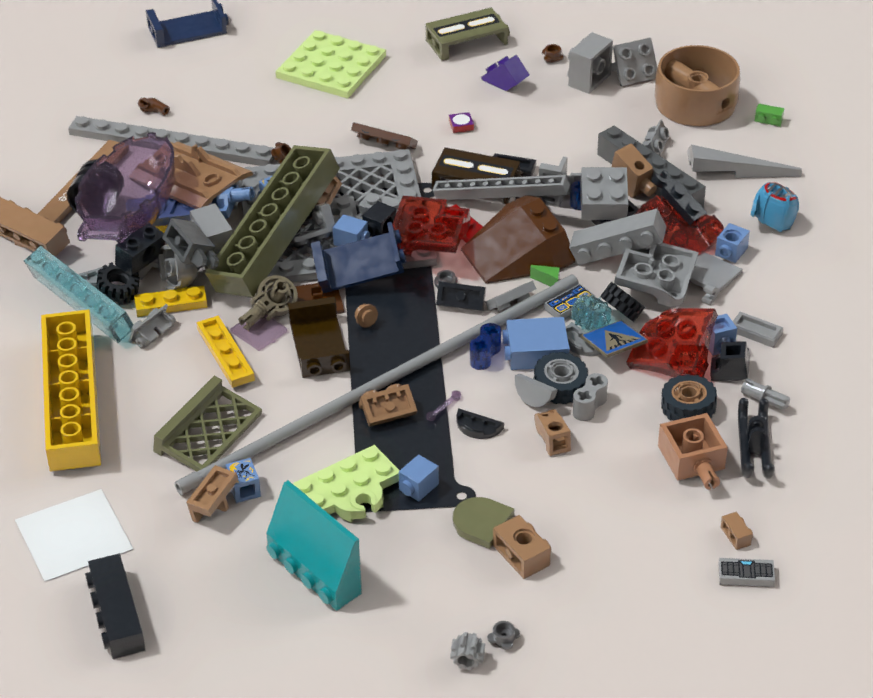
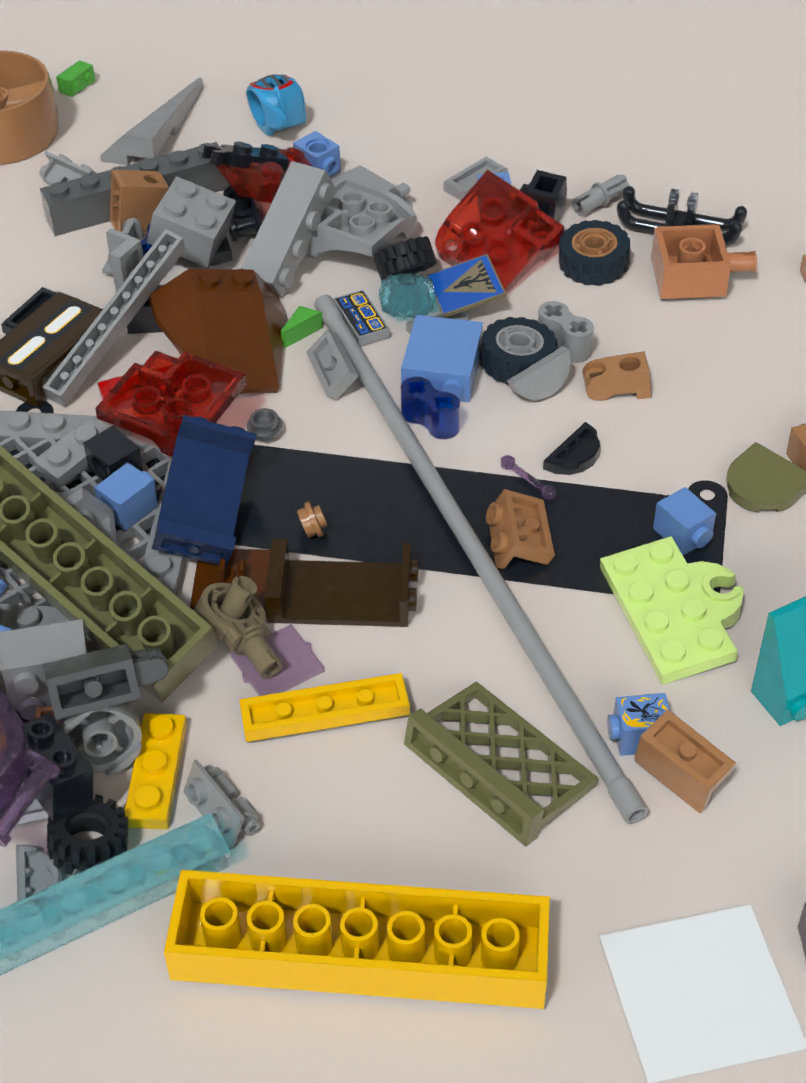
camera: 75 degrees left, 5 degrees up
(461, 296) = (312, 413): black plate -> none

